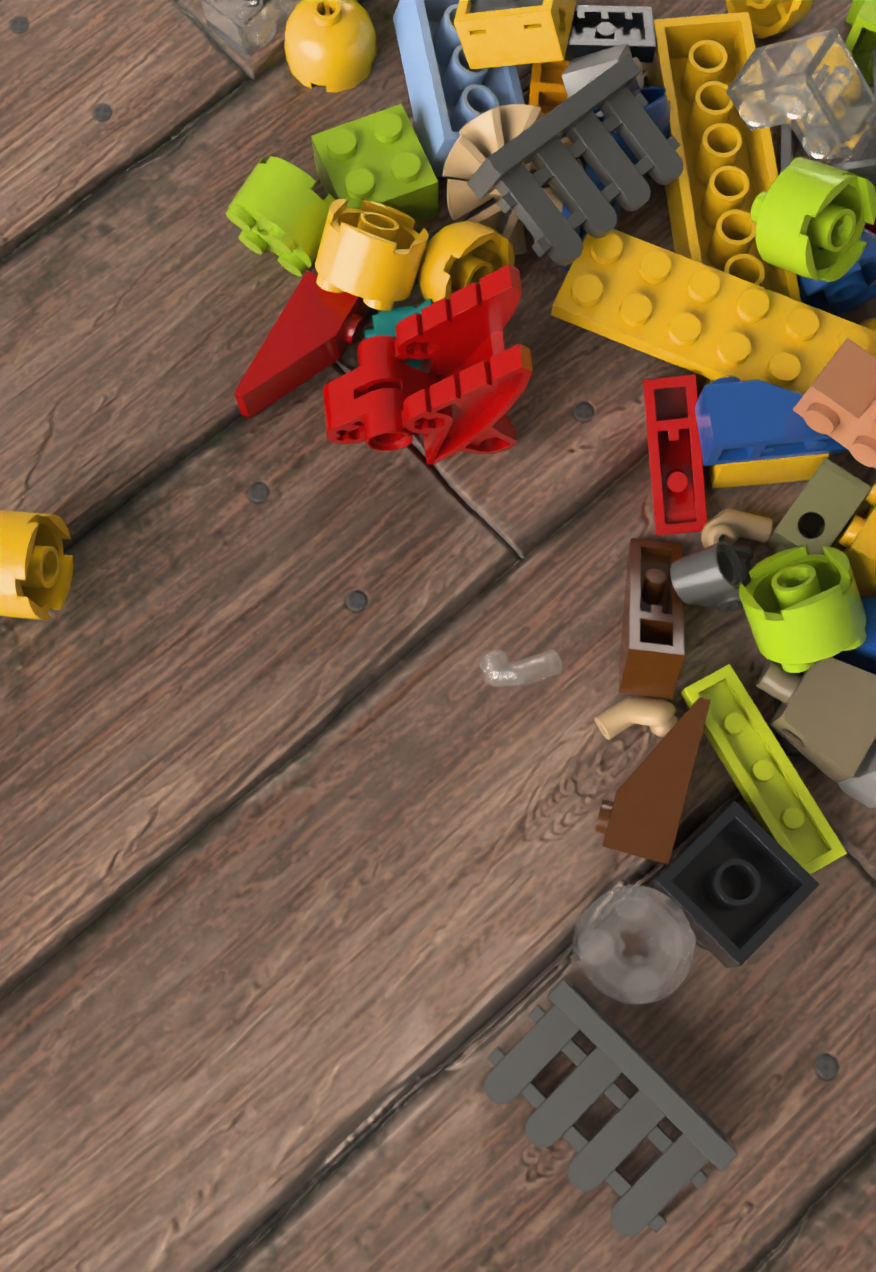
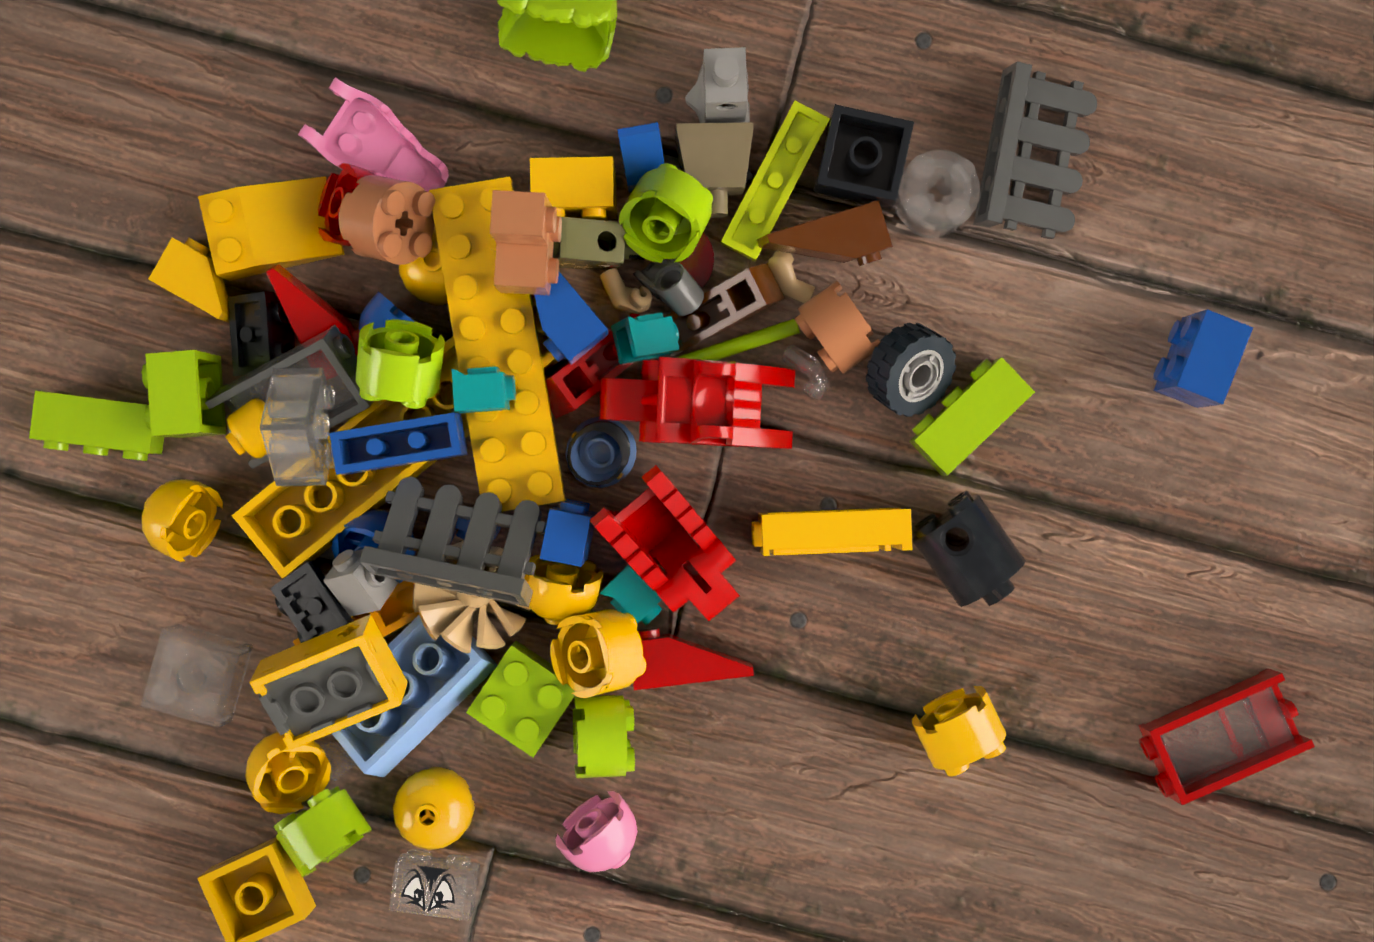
camera: 125 degrees left, 15 degrees up
(187, 158) = (599, 834): none -> bright pink cylinder
(196, 701) = (979, 562): none -> black cylinder
(218, 1133) = (1202, 358): none -> blue brick
(326, 566) = (832, 531): none -> yellow door
(346, 812) = (970, 415): none -> lime brick
(445, 771) = (911, 369): none -> black wheel
(537, 269) = (568, 533): none -> blue brick
(547, 720) = (837, 327): none -> nougat brick
(560, 514) = (697, 402): none -> red piece
(576, 403) = (600, 452): none -> medium blue piece
(603, 597) = (745, 342): none -> lime bar
(672, 512) = (645, 337): none -> teal window
(721, 632) = (700, 262): none -> dark red tile
(723, 177) = (398, 443): none -> blue brick
(731, 278) = (482, 390): none -> teal window

